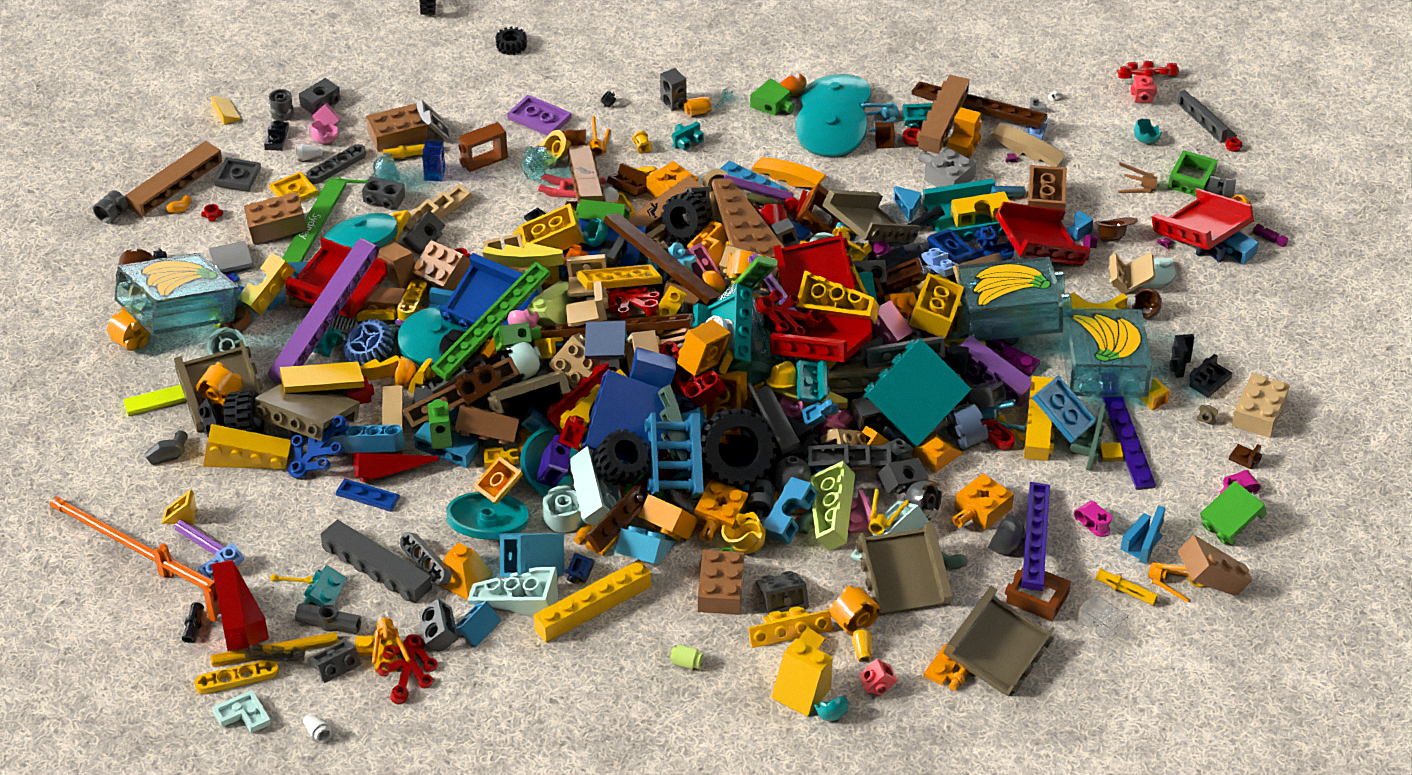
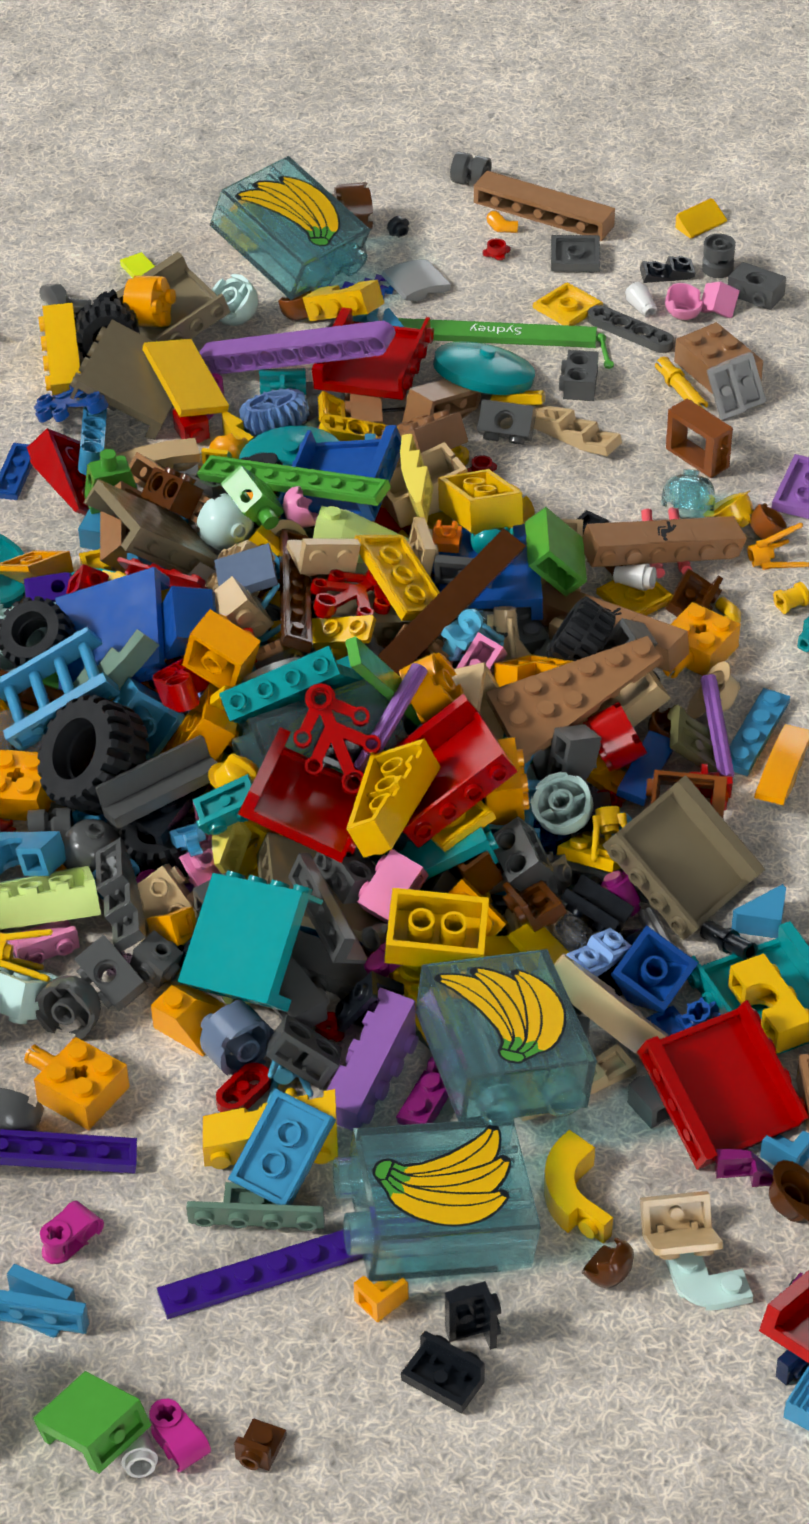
camera: 80 degrees right, 0 degrees up
(275, 218) = (490, 293): medium nougat brick -> none
(386, 168) = (621, 363): clear light blue cylinder -> none
(433, 160) = (651, 398): clear blue brick -> none
(1111, 452) = (235, 1246): yellow tile -> none
(1211, 411) = (348, 1377): dark tan plate -> none
(1260, 405) = (384, 1455): tan piece -> none

